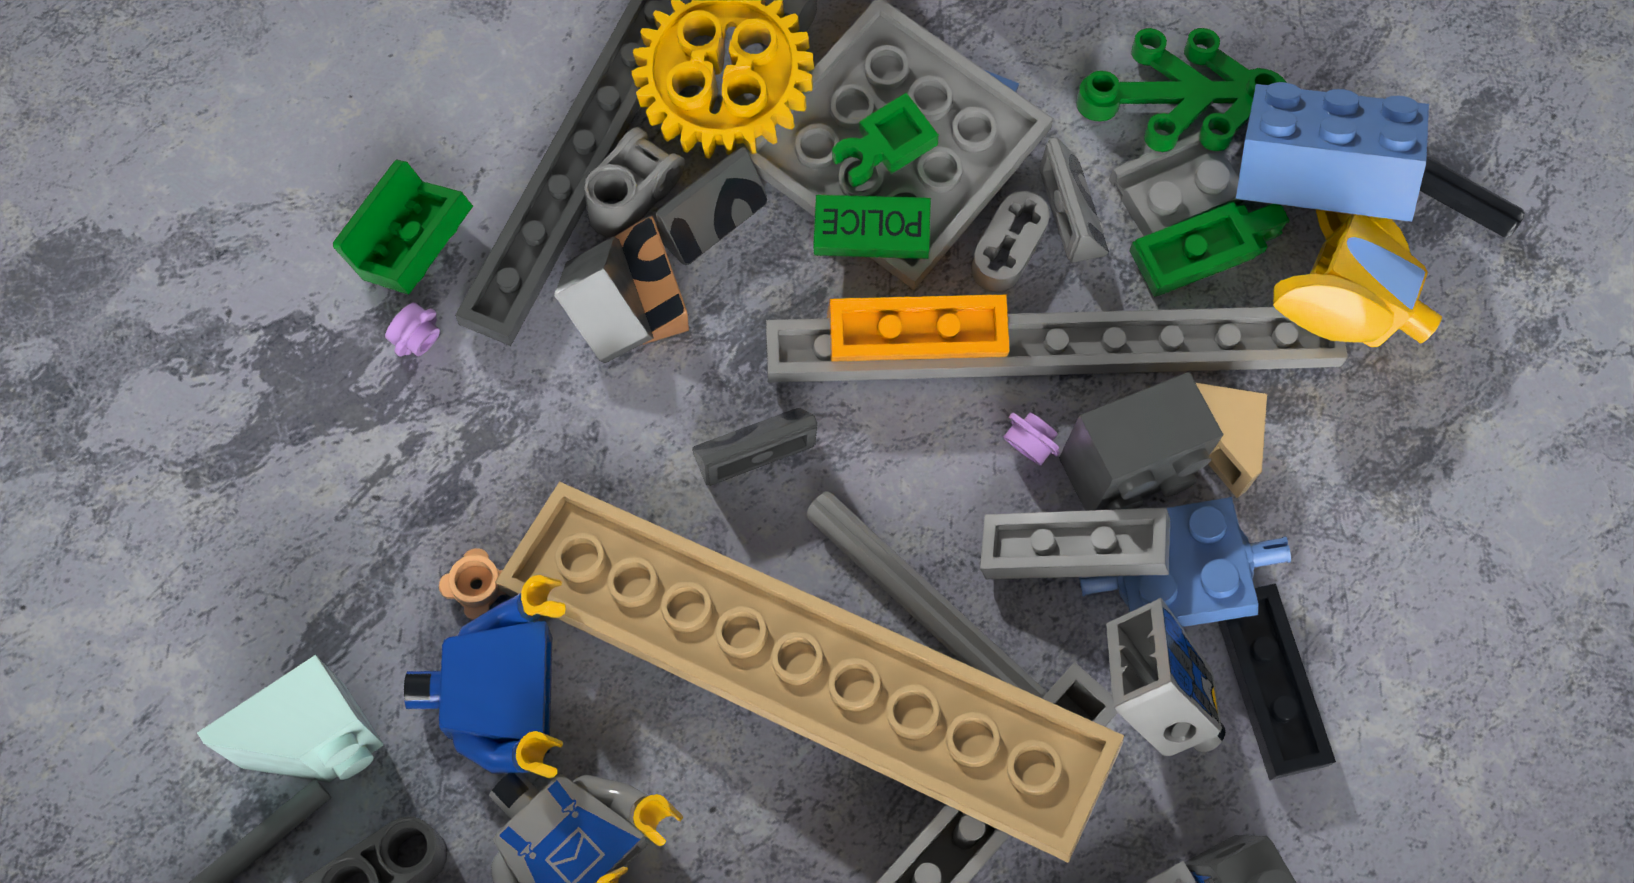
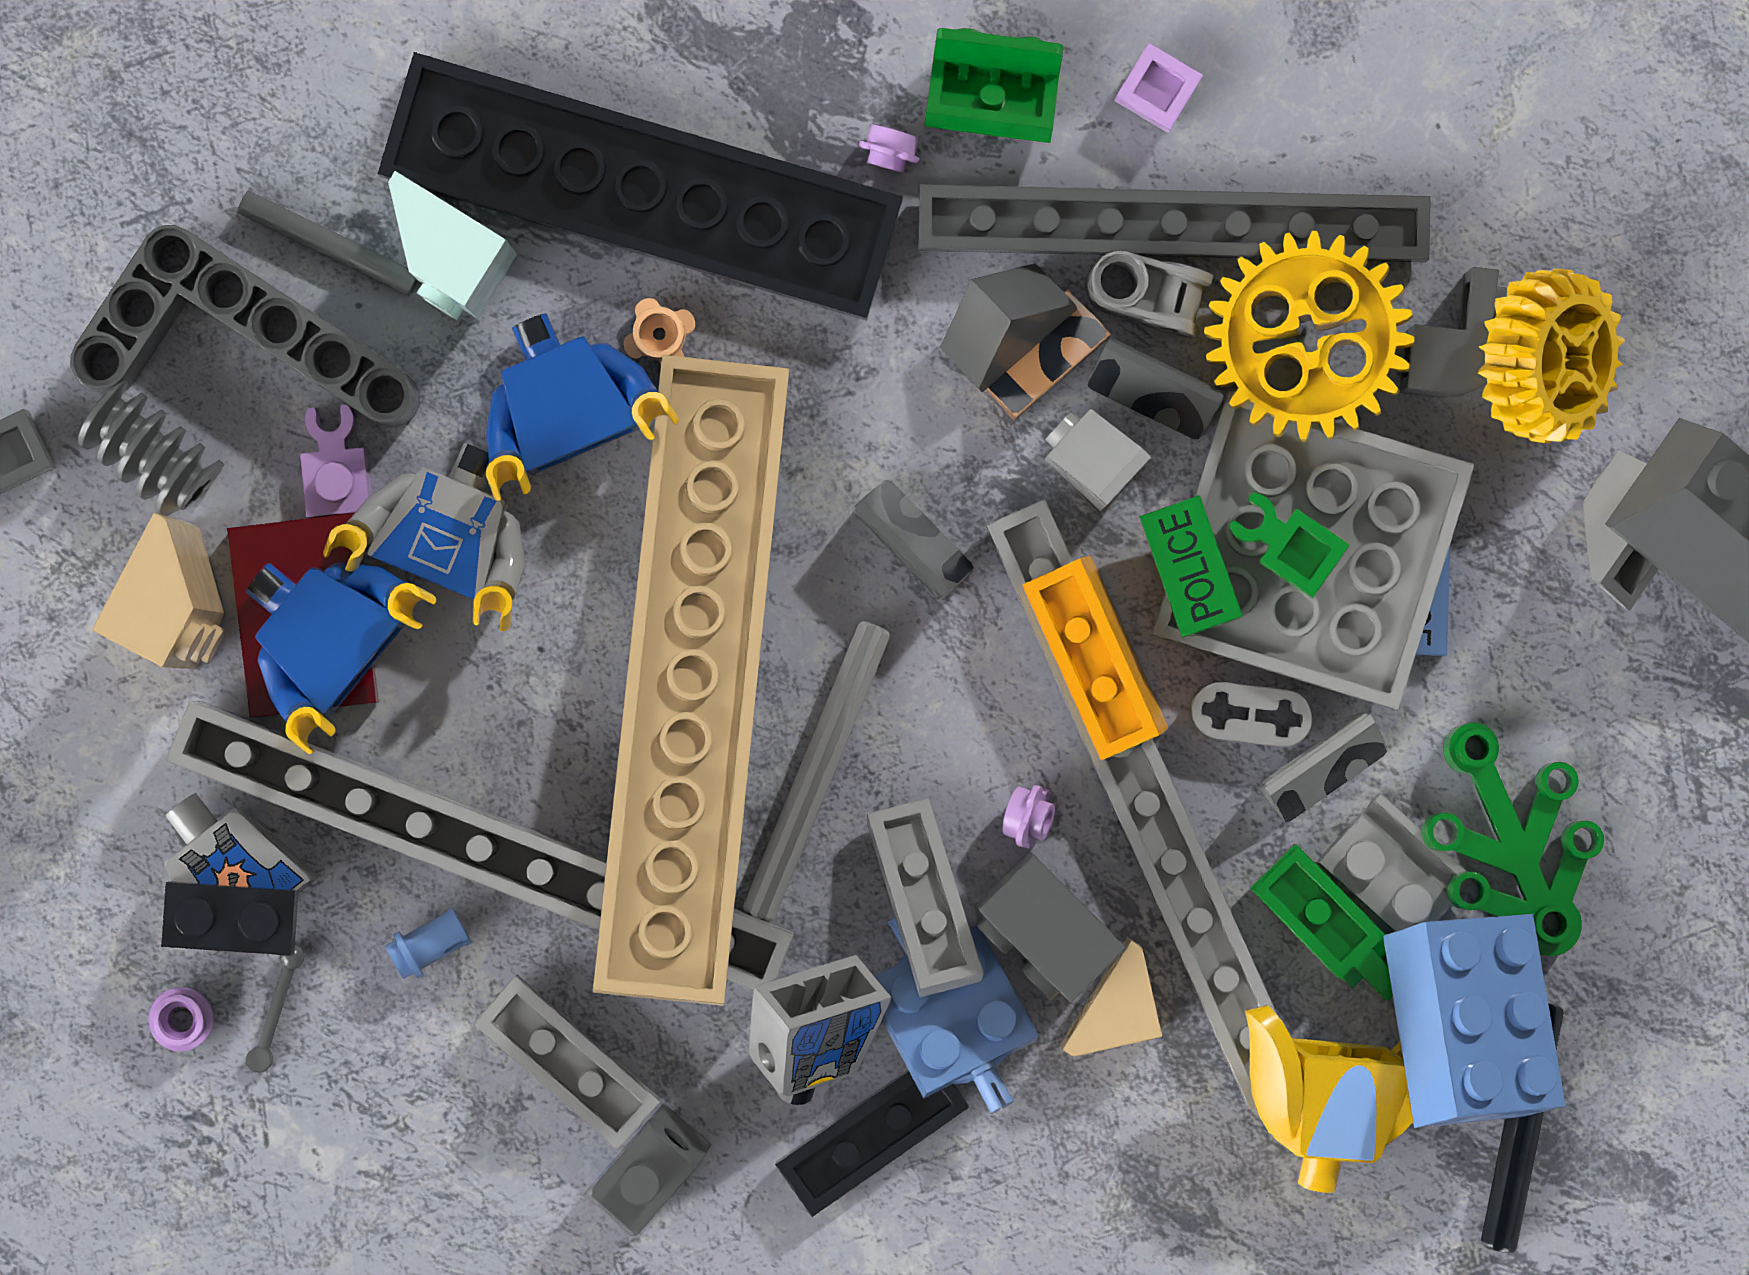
camera: 75 degrees right, 20 degrees up
(334, 547) = (641, 186): none -> black plate
(471, 115) = (1158, 87): none -> lavender plate
(752, 261) = (1094, 457): none -> light grey slope

